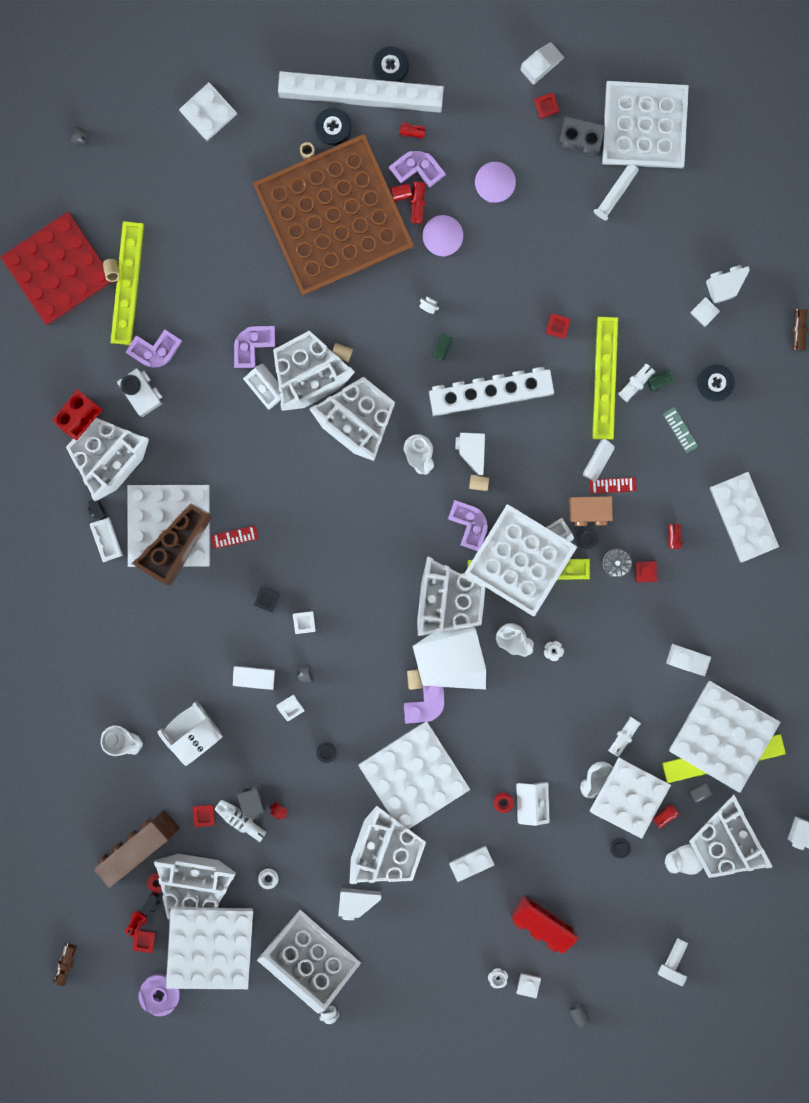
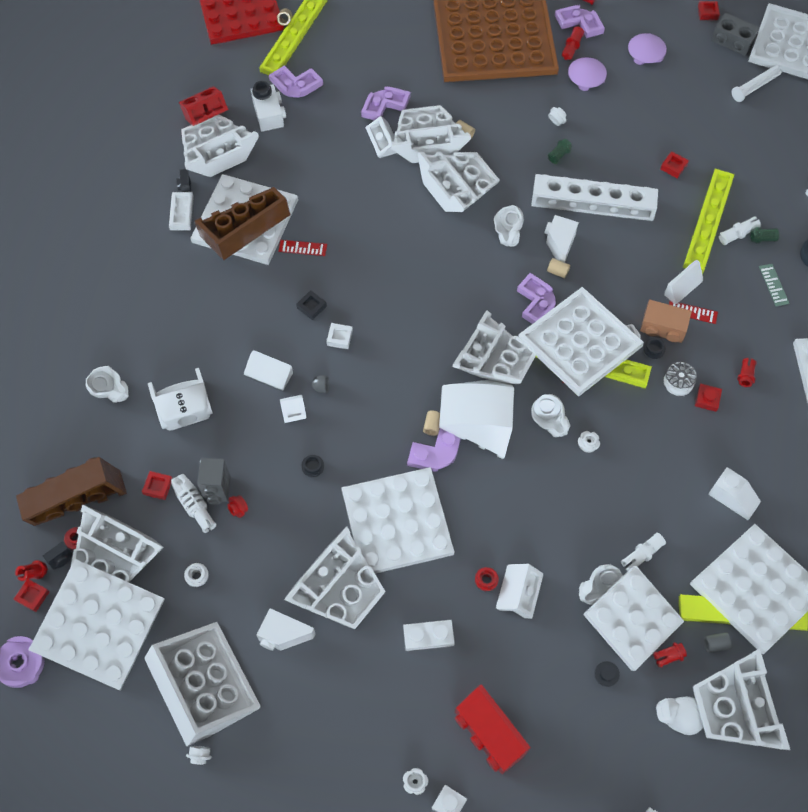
camera: 15 degrees right, 25 degrees down
(401, 192) = (560, 32): red hinge -> none

